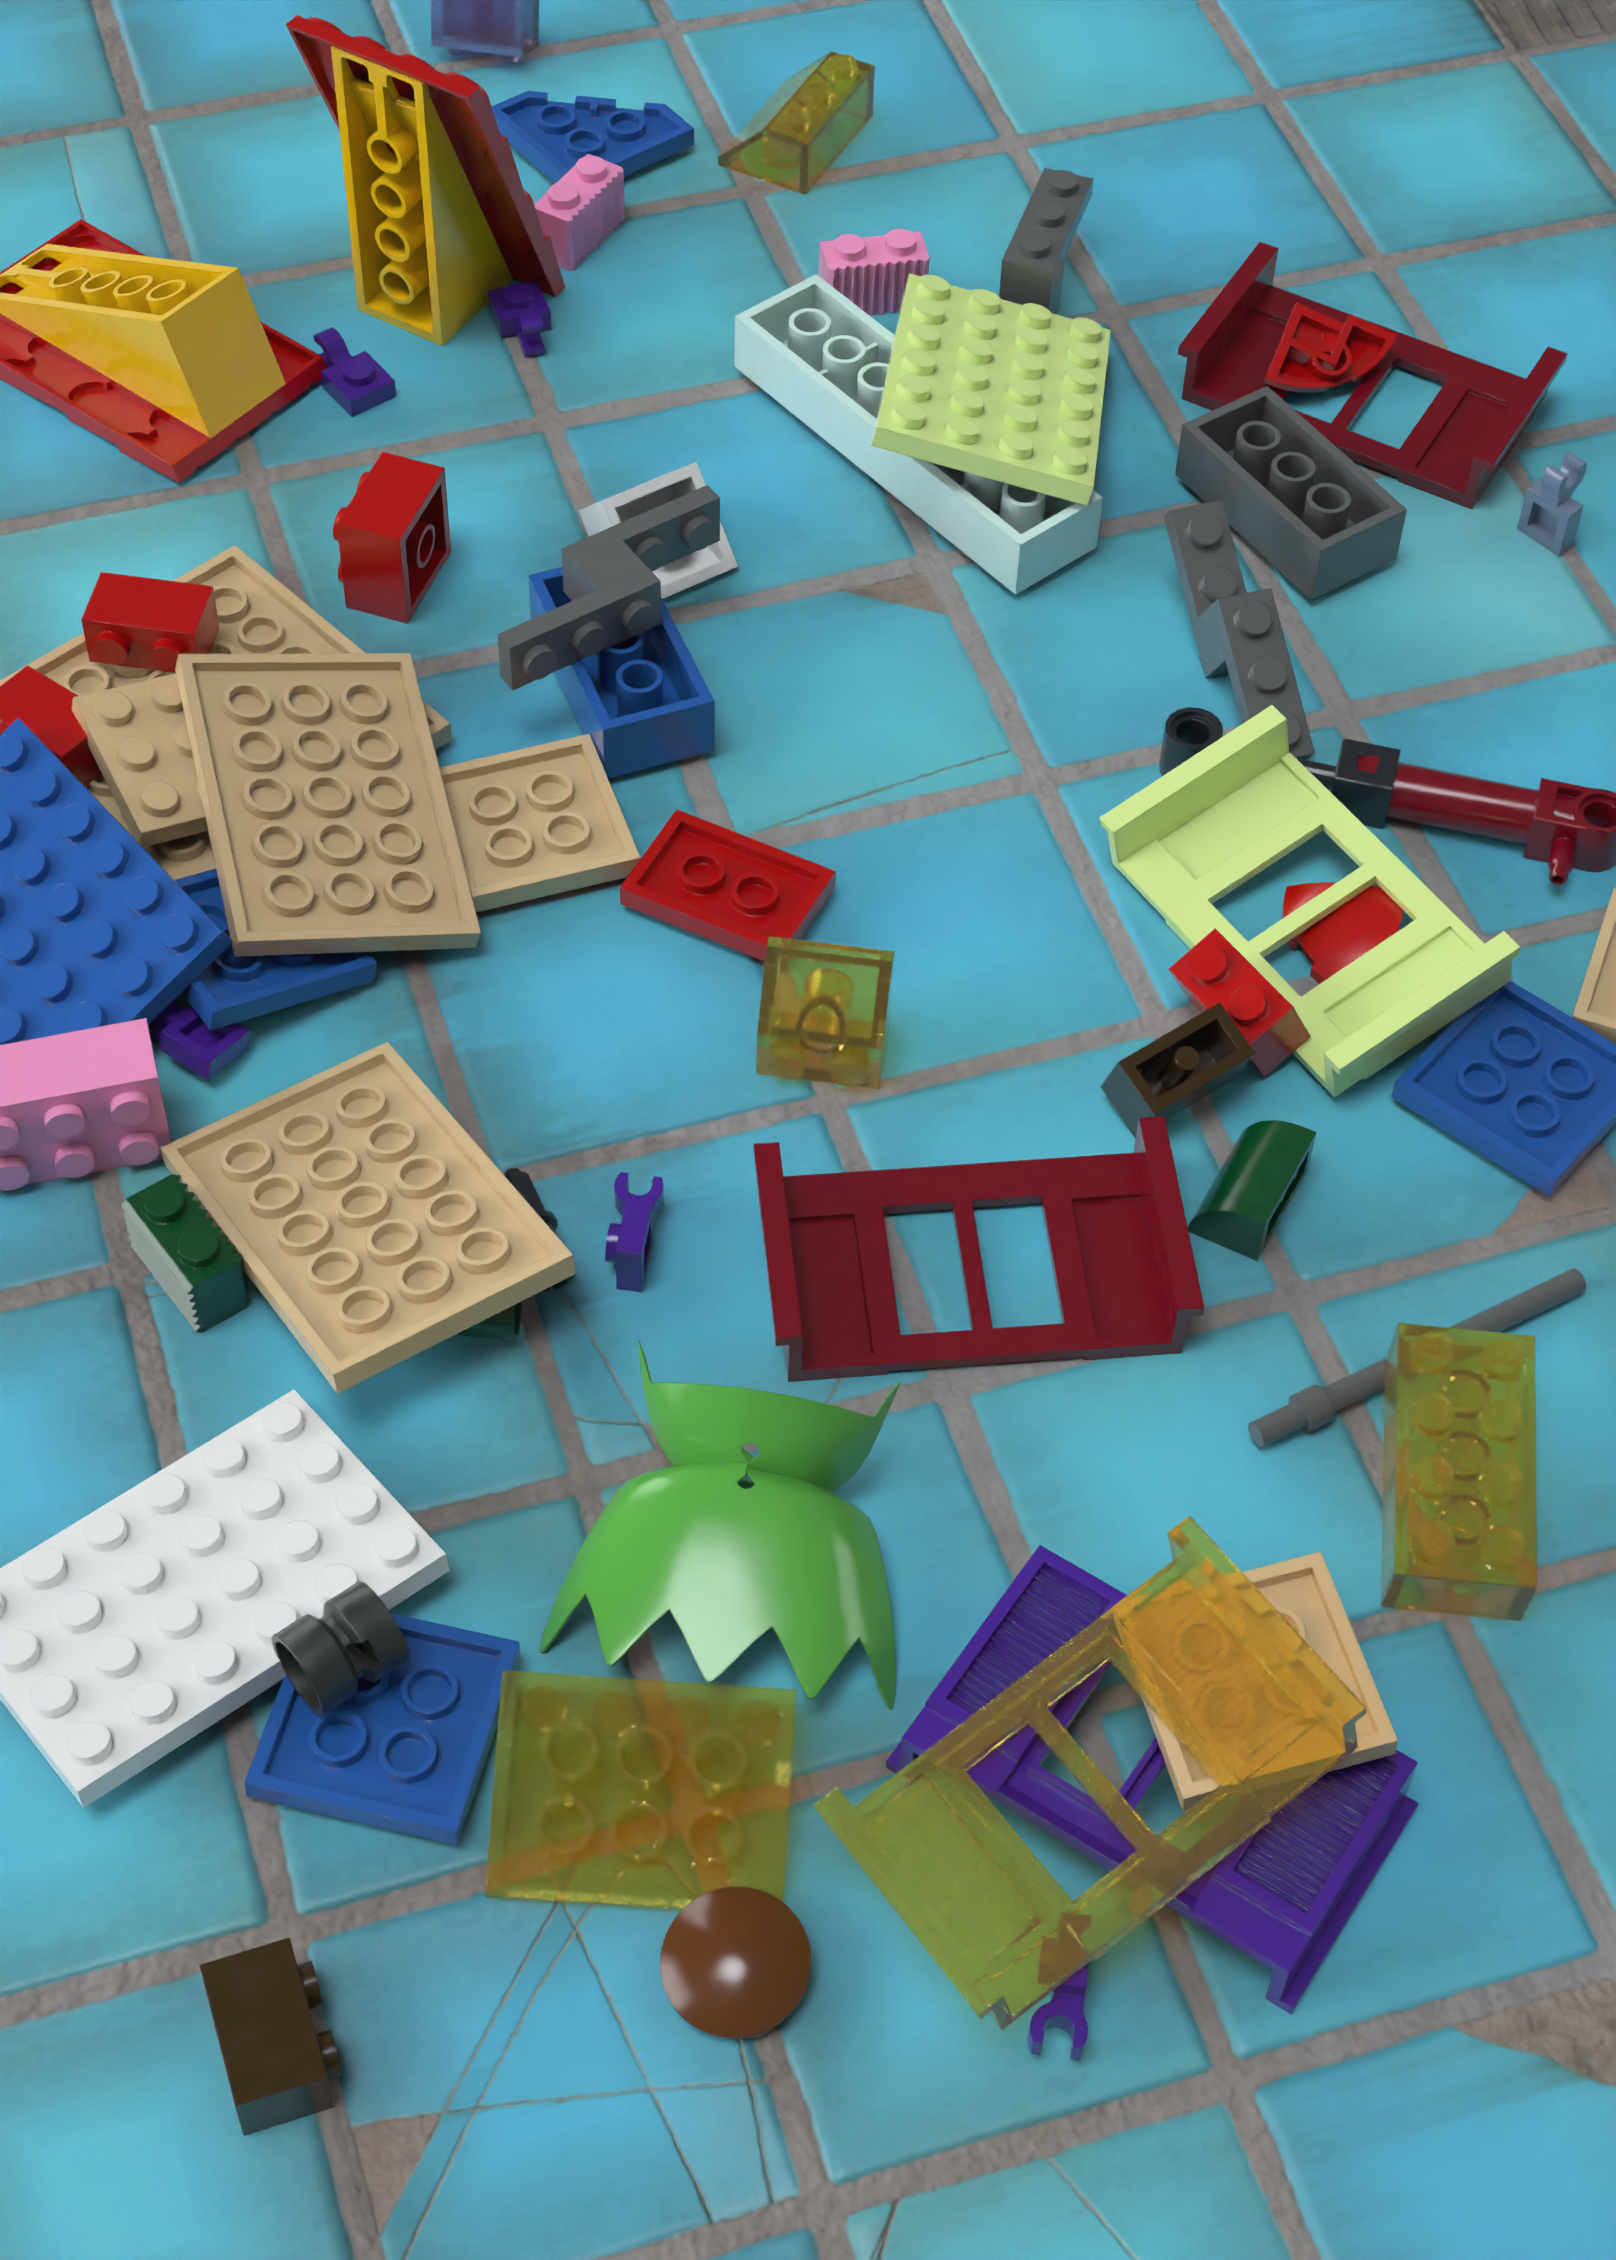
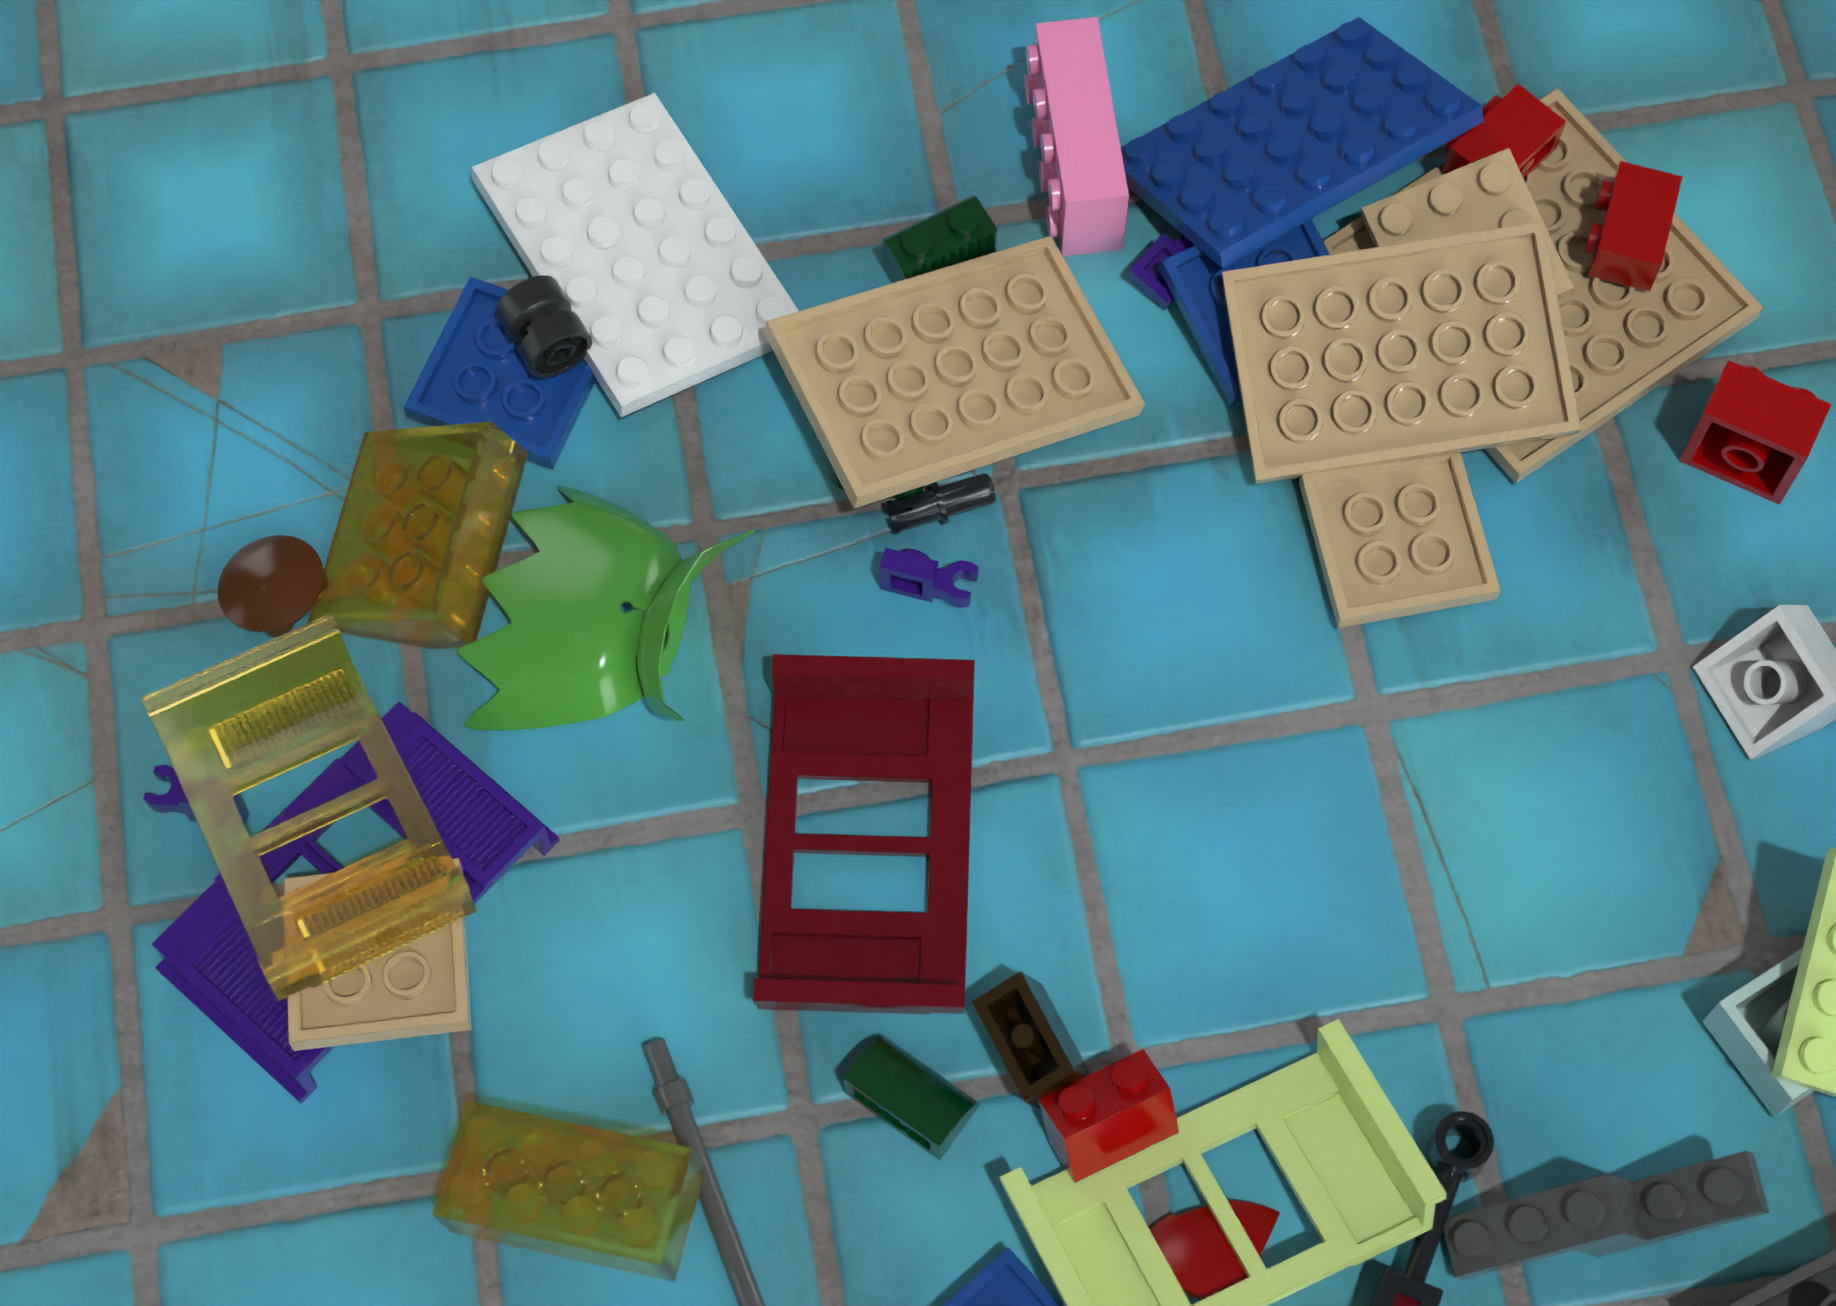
camera: 100 degrees right, 15 degrees up
(268, 2035) = (280, 286): dark brown brick -> none
(609, 587) = (1640, 595): dark grey bracket -> none
(636, 697) = (1586, 621): blue brick -> none
(726, 885) = (1306, 695): red plate -> none
(824, 1012) = (1121, 746): clear yellow slope -> none

